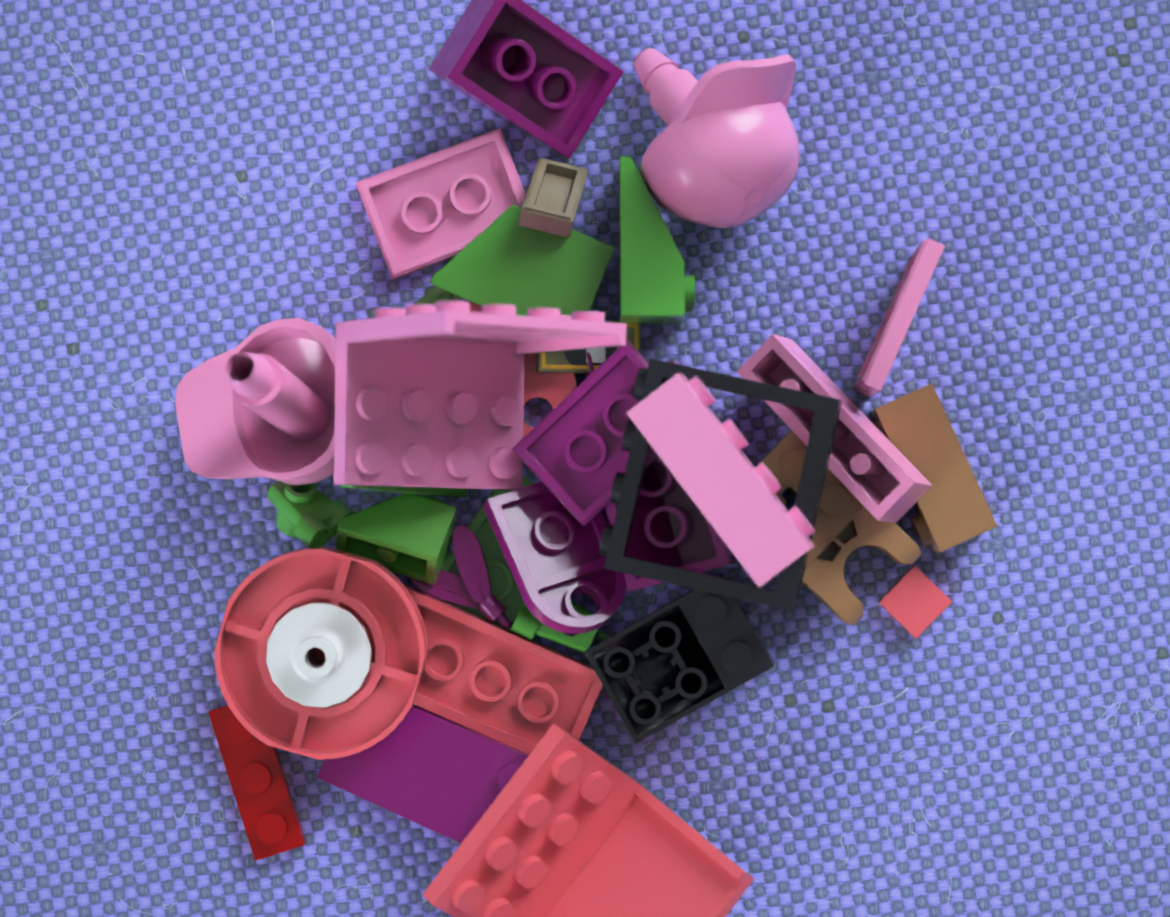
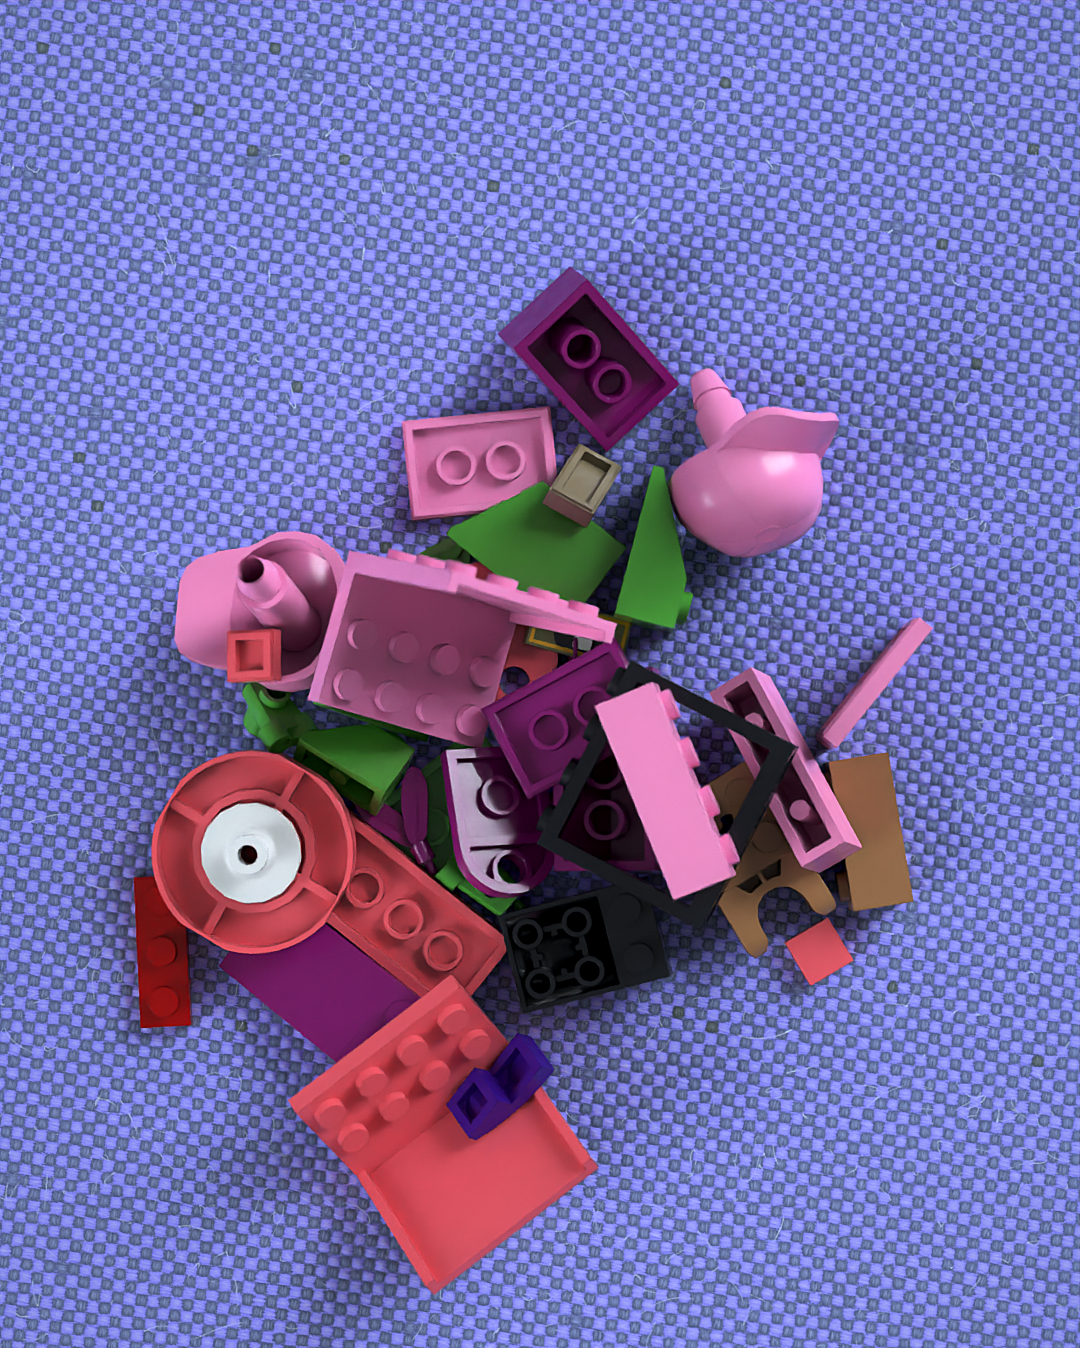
camera: 15 degrees right, 0 degrees up
(268, 455) = (254, 656): none -> coral tile
(629, 832) = (495, 1094): none -> dark purple slope

